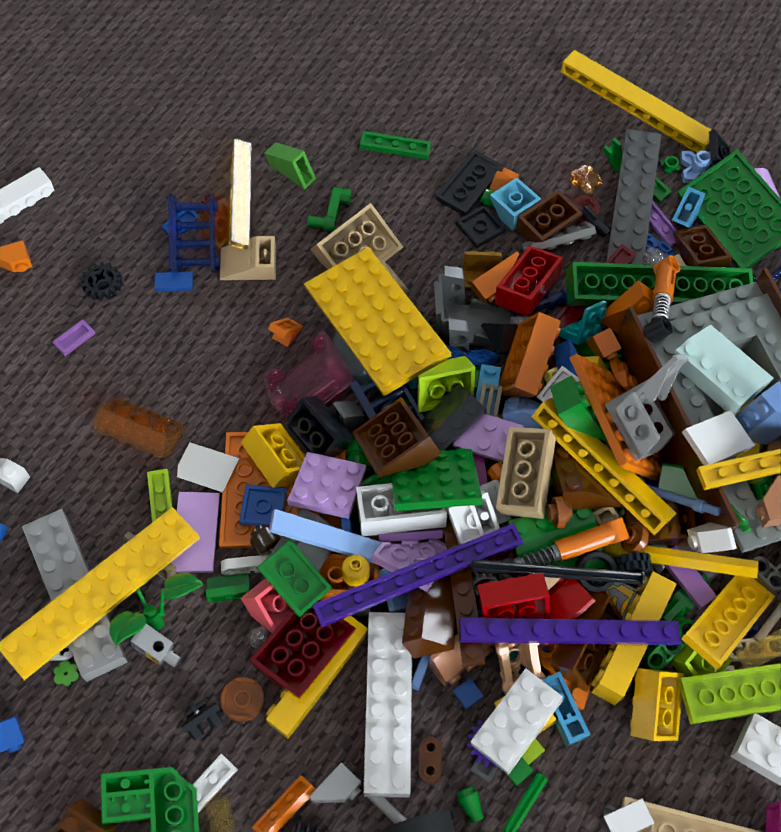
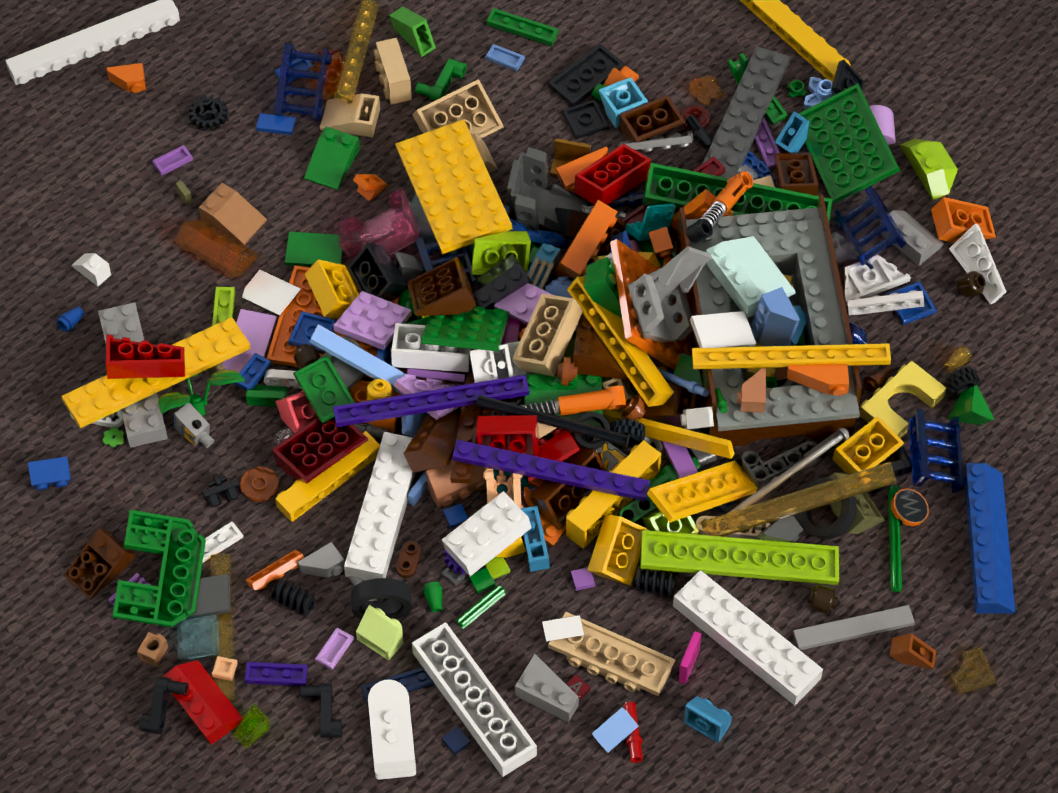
camera: 15 degrees right, 5 degrees down
(79, 585) = (143, 359): none -> red wedge
(92, 371) = (184, 193): none -> olive tile
(147, 386) = (231, 214): none -> medium nougat slope
(208, 564) = (253, 371): none -> blue plate
(240, 308) = (332, 158): none -> green slope
(242, 410) = (307, 248): none -> green tile
(281, 208) = (392, 71): none -> tan brick
(386, 177) = (505, 57): none -> medium blue tile
(625, 744) = (582, 579): none -> medium lavender tile
(706, 732) = (655, 582): none -> black piece

